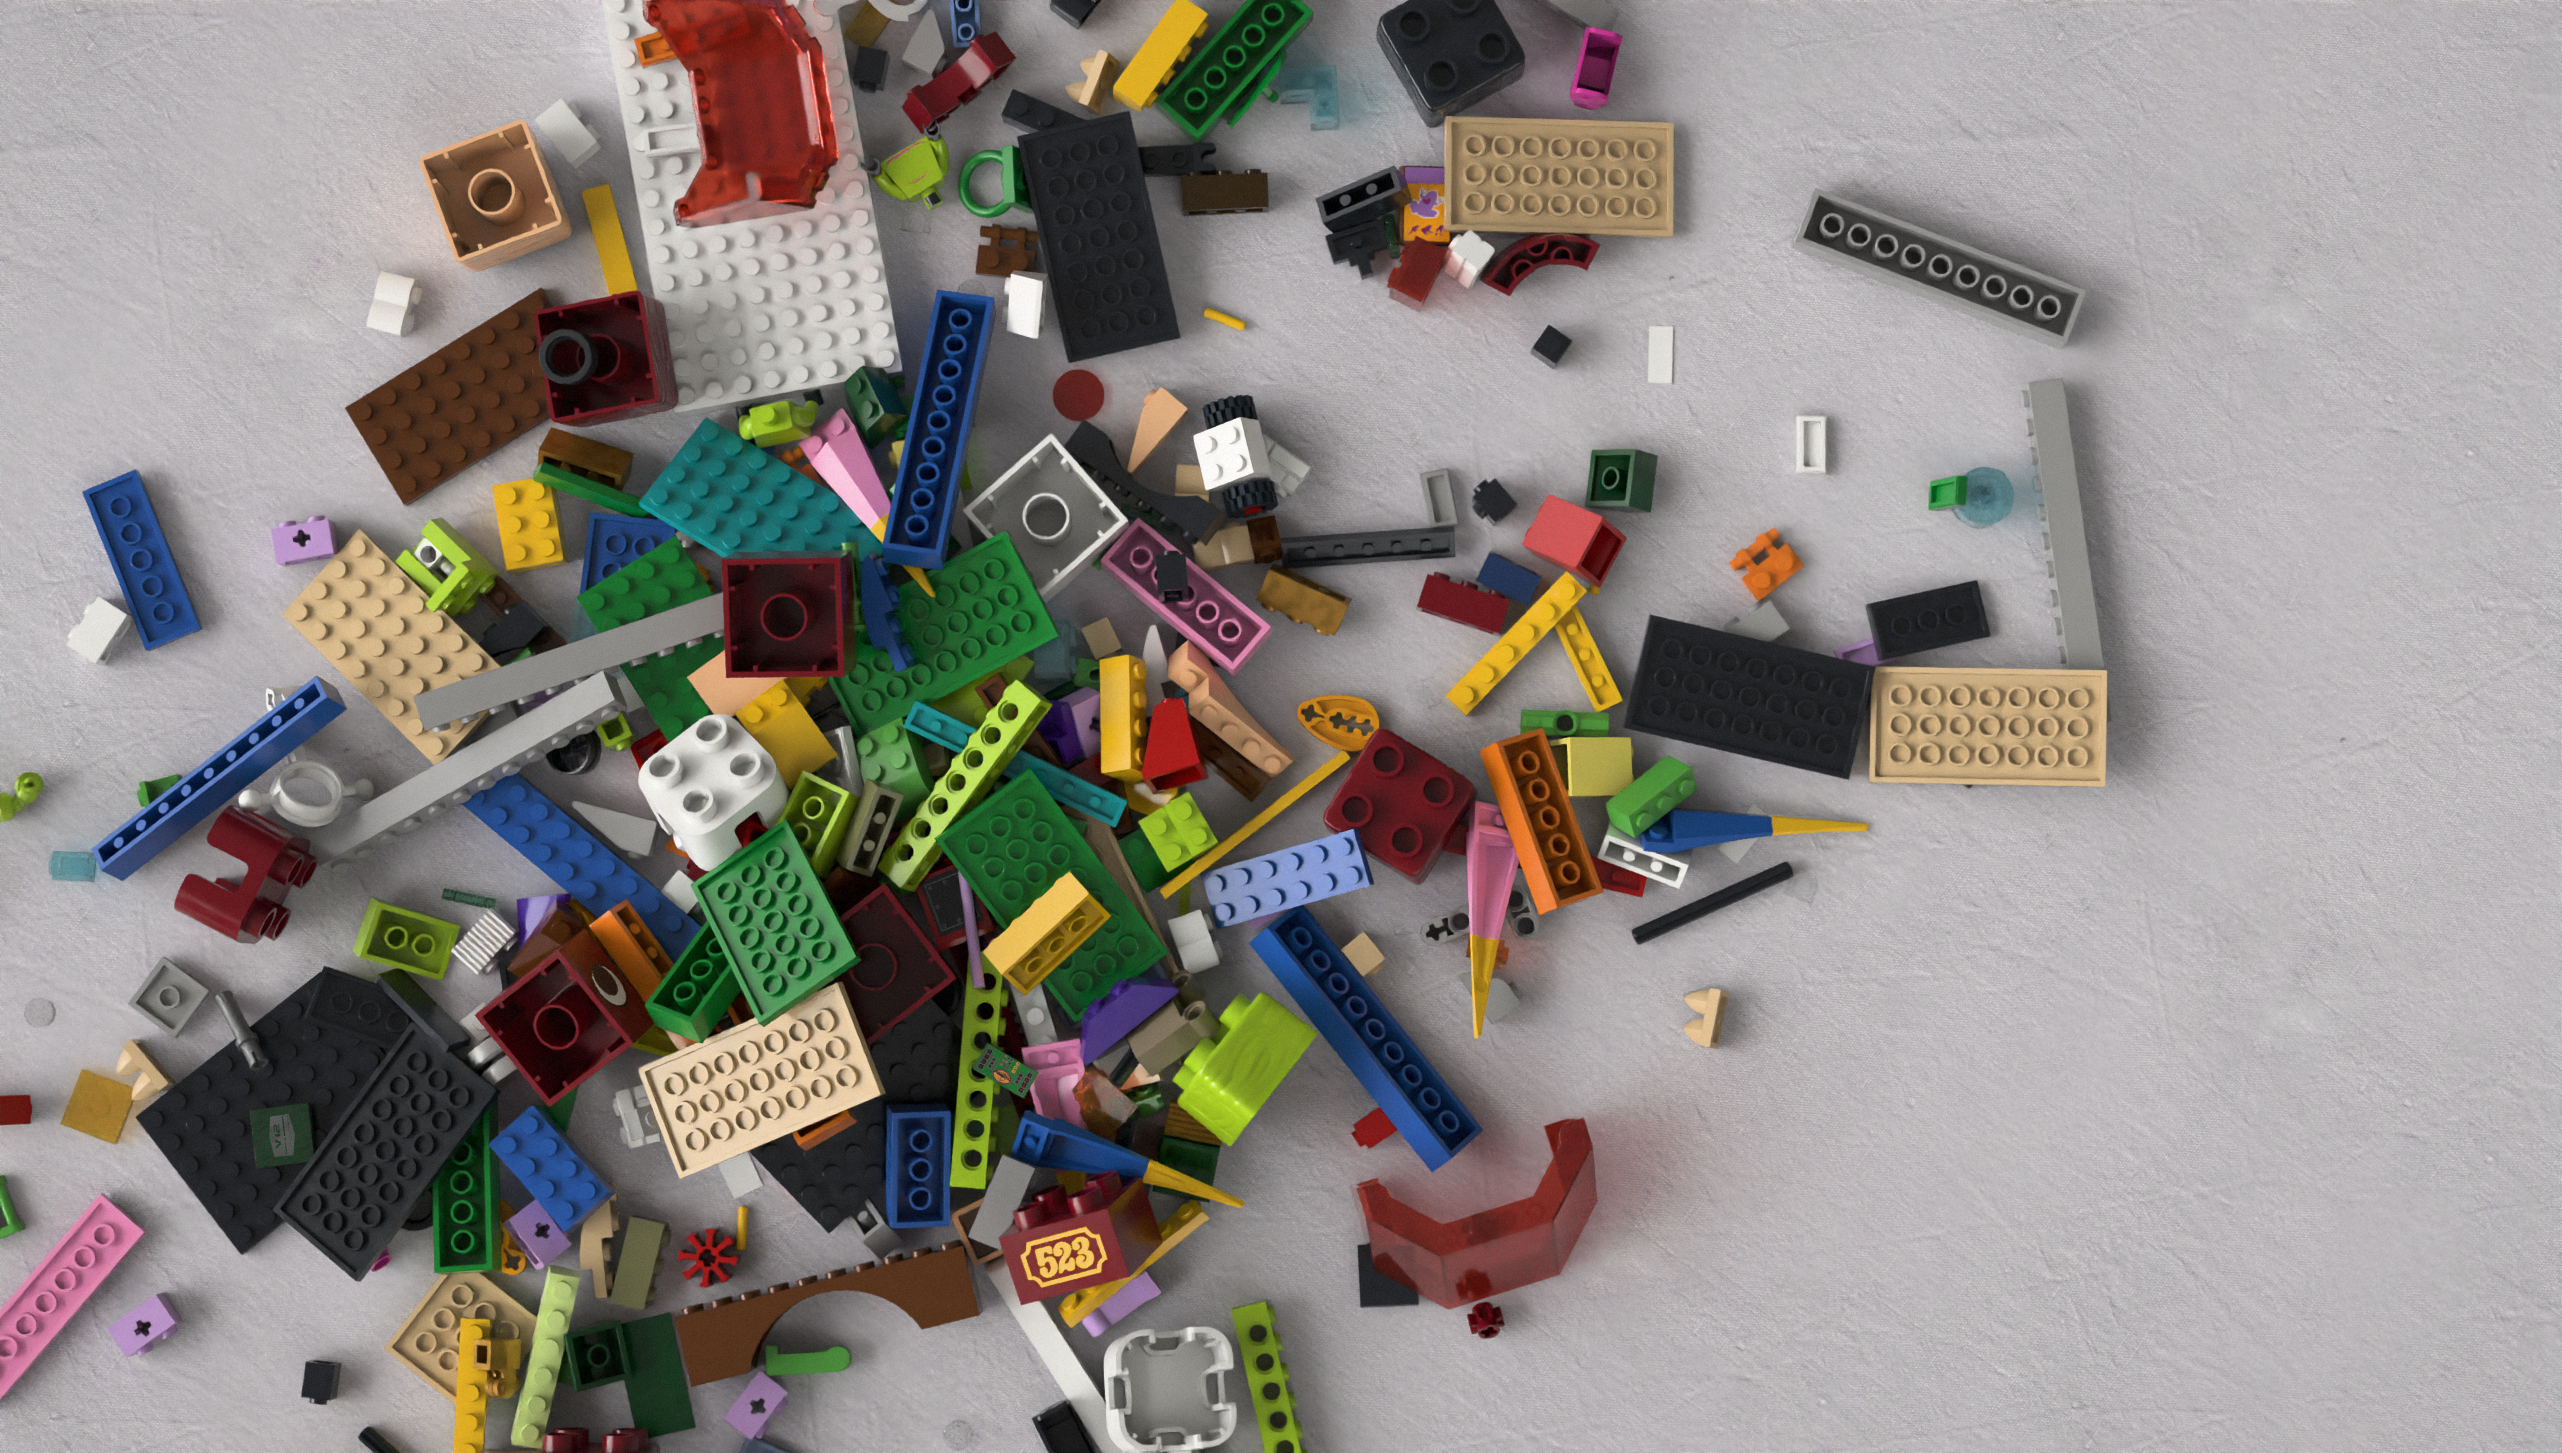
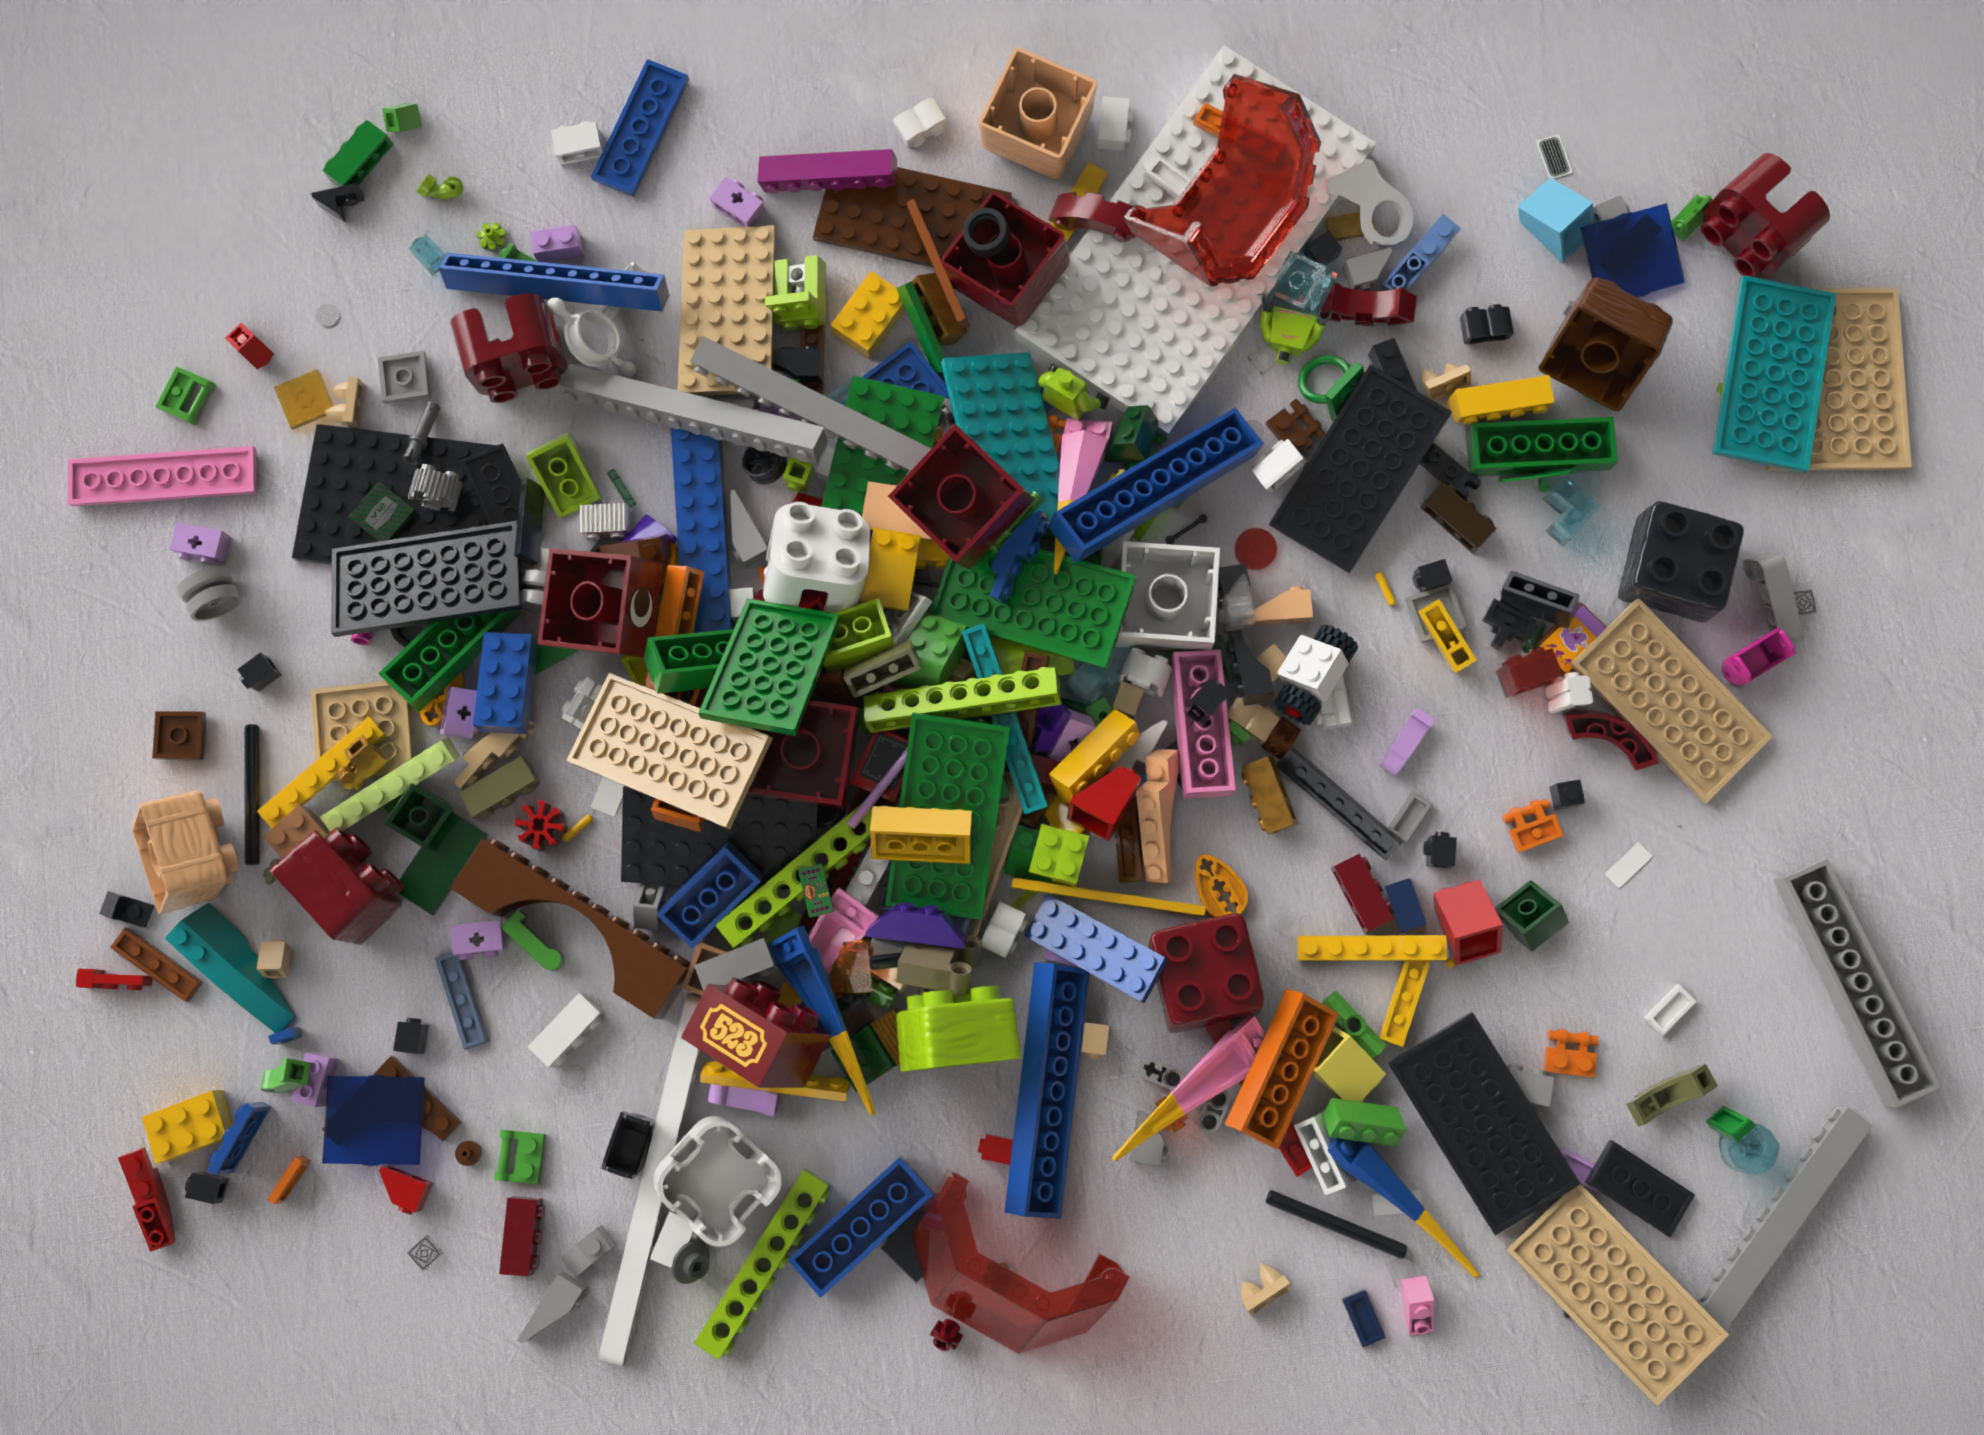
camera: 50 degrees right, 5 degrees down
(111, 792) = (491, 236): none -> lime plant
(180, 741) = (557, 244): none -> lavender brick
(205, 1358) = (209, 593): none -> light grey wheel
(310, 1065) = (435, 488): none -> light grey brick
(358, 433) = (827, 171): none -> magenta brick
(544, 420) = (936, 262): none -> dark orange tile
(636, 241) = (1091, 213): none -> dark red brick
(886, 118) = (1303, 283): none -> clear light blue brick
(913, 1403) = (567, 1031): none -> white brick
(997, 460) = (1171, 539): none -> black hinge
(1094, 600) = (1146, 672): none -> white brick
(1116, 467) = (1237, 607): none -> clear slope
(1224, 575) = (1237, 734): none -> bright green plate
(1253, 269) = (1432, 575): none -> black brick
(1288, 298) = (1423, 599): none -> light grey plate
(1317, 312) = (1447, 636): none -> yellow slope
(1326, 1305) = (860, 1226): none -> blue brick
(1373, 435) = (1407, 740): none -> lavender leg
(1556, 406) = (1536, 832): none -> orange plate
(1809, 956) = (1363, 1318): none -> dark blue tile
(1842, 901) = (1418, 1305): none -> bright pink slope
(1876, 517) = (1670, 1093): none -> olive arch

